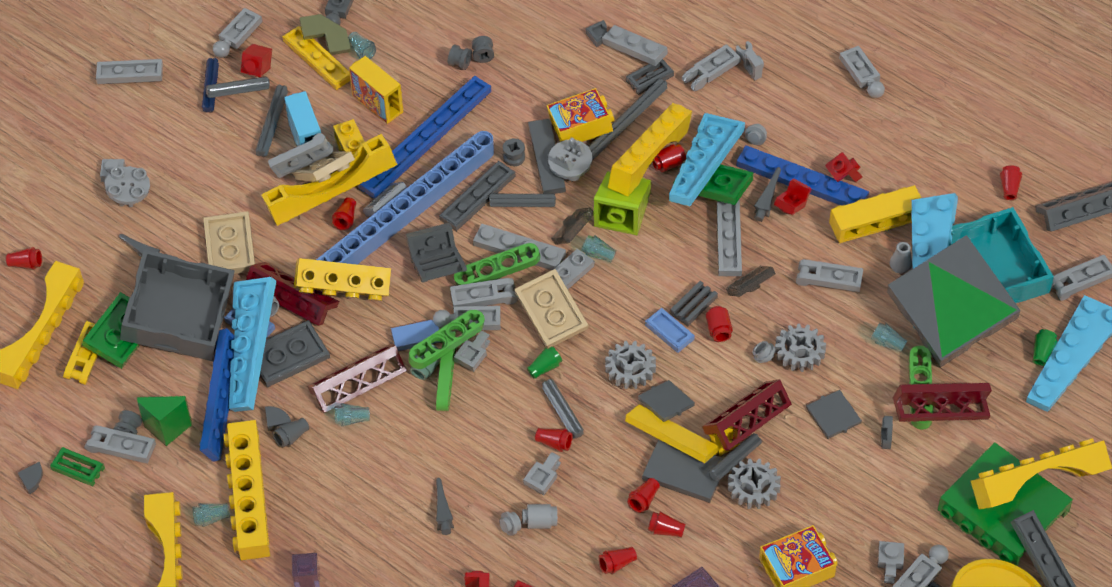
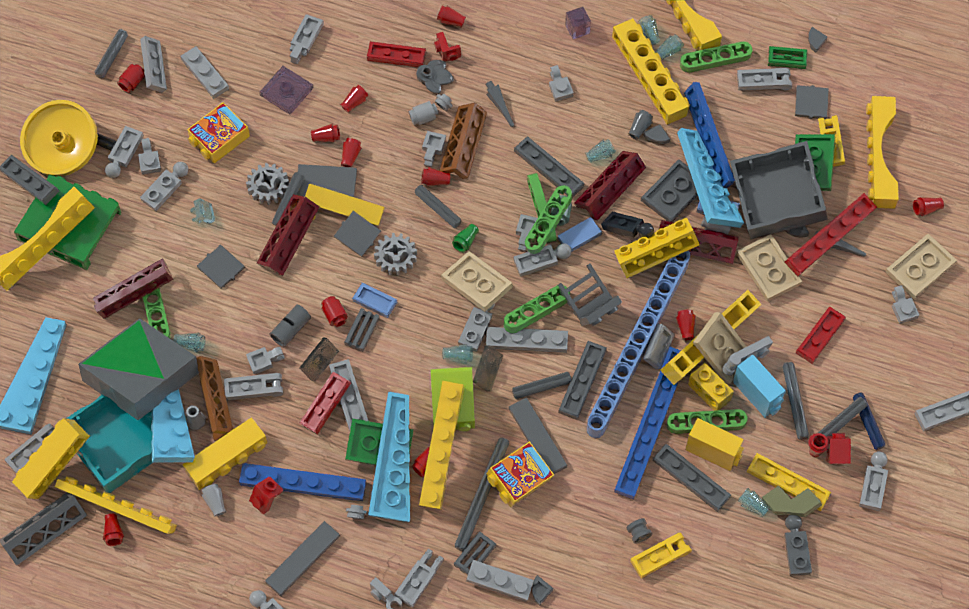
camera: 160 degrees right, 10 degrees up
(70, 203) = (921, 266): none -> tan plate
(80, 409) = (811, 102): none -> dark grey piece
(127, 185) = (876, 280): light grey plate -> none
(128, 422) = (766, 93): dark grey wheel -> none
(161, 243) = (830, 234): none -> red tile
(161, 485) = (715, 53): none -> bright green beam
(165, 416) = (740, 97): green slope -> none
(211, 172) = (820, 335): none -> red tile
(222, 543) = (650, 29): none -> clear light blue cone
(274, 65) = (818, 444): none -> red cone
(361, 316) = (627, 225): none -> black plate
(362, 506) = (559, 86): none -> light grey plate
(371, 122) = (707, 416): none -> bright green beam
(411, 85) = (691, 477): none -> dark grey tile
(417, 419) = (548, 166): none -> dark grey tile
(459, 57) = (657, 515): dark grey wheel -> none
(470, 27) = (660, 555): none -> yellow plate
(484, 293) = (539, 283): light grey plate -> none
(498, 467) = (467, 140): none -> dark orange fence
(506, 561) = (436, 75): none -> dark grey plate
(516, 157) = (566, 433): dark grey wheel -> none
(565, 167) = (511, 436): light grey plate -> none
(757, 236) = (325, 403): none -> tile
(763, 352) = (290, 297): light grey plate -> none
(764, 203) = (328, 444): dark grey piece -> none
(772, 322) = (290, 325): none -> dark grey pin
(794, 198) = (305, 450): red bracket -> none
(800, 347) = (265, 316): light grey gear -> none
(813, 297) = (261, 359): none -> light grey plate
(821, 114) = (302, 558): none -> dark grey tile
(839, 471) = (203, 211): none -> clear light blue tile
(875, 268) = (214, 397): none -> dark orange fence
(878, 519) = (164, 186): none -> light grey plate
(886, 432) = (174, 258): dark grey tile -> none
(897, 179) = (213, 497): none -> light grey cone
(1002, 198) = (108, 501): none -> yellow plate
(1043, 346) = (57, 373): green cone -> none
(1065, 241) = (50, 458): none -> yellow brick

